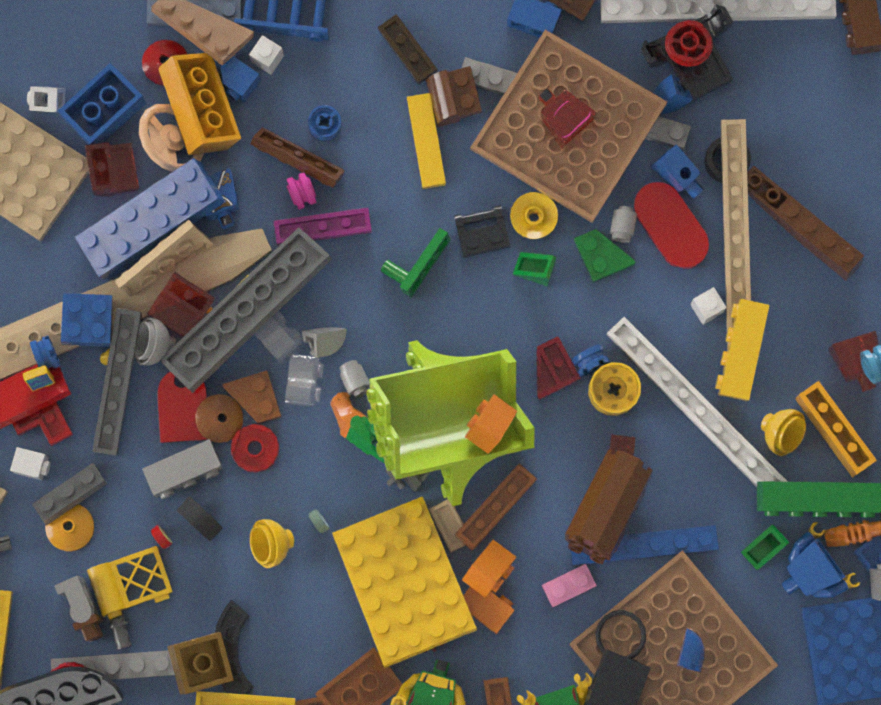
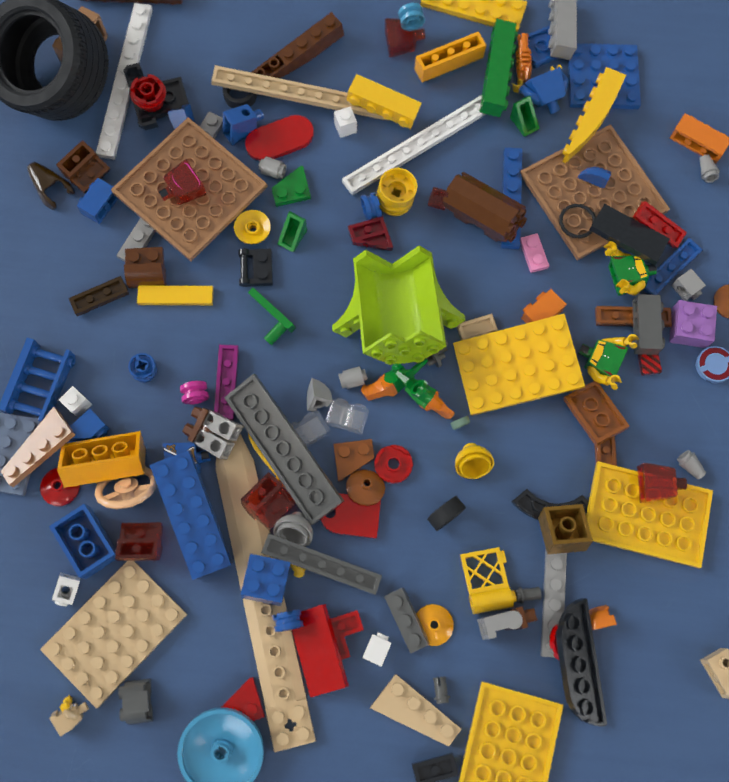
camera: 85 degrees left, 5 degrees down
(38, 378) = (307, 628): tile -> none
(161, 536) = (455, 548): red tile -> none
(163, 257) = (226, 508): tan wing -> none
(183, 469) = (403, 522): light grey brick -> none
(253, 223) = (206, 429): none -> light grey hips
(297, 157) = (166, 391): reddish brown plate -> none
(344, 470) = (425, 396): none -> green animal
(489, 569) = (518, 300): orange brick -> none
(490, 424) = (410, 276): orange brick -> none
(495, 507) = (469, 292): dark orange tile -> none
(784, 431) = (444, 90): yellow piece -> none
(787, 639) = (595, 111): none -> yellow slope

